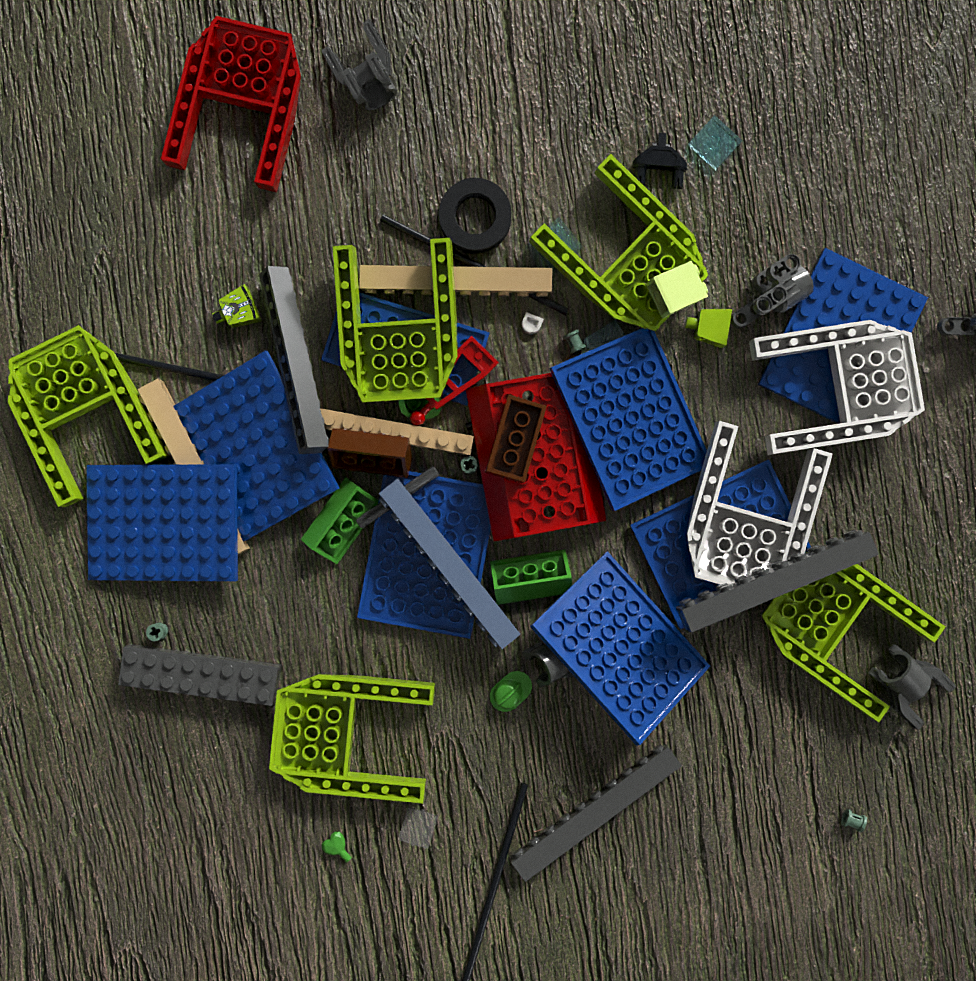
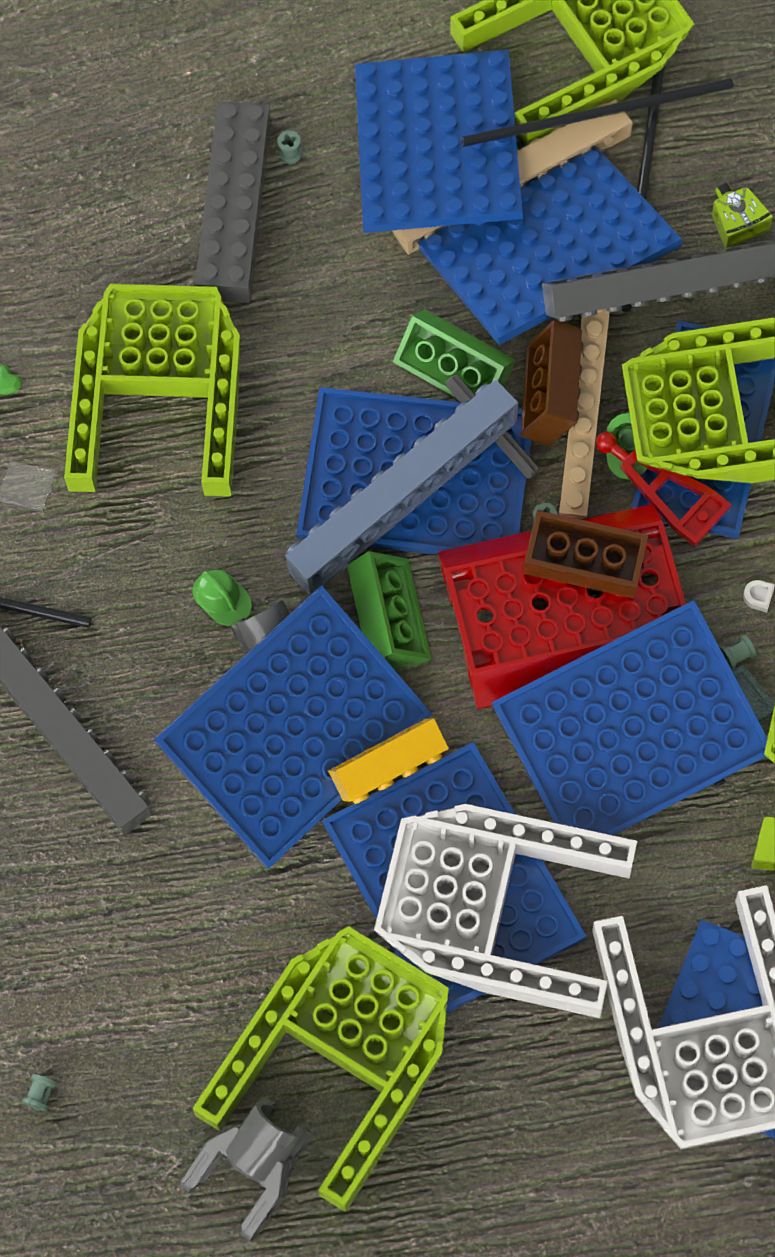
camera: 90 degrees right, 20 degrees down
(150, 404) = (597, 112): none -> black piece
(643, 583) = (389, 760): none -> yellow brick
(776, 580) = (404, 923): dark grey brick -> none

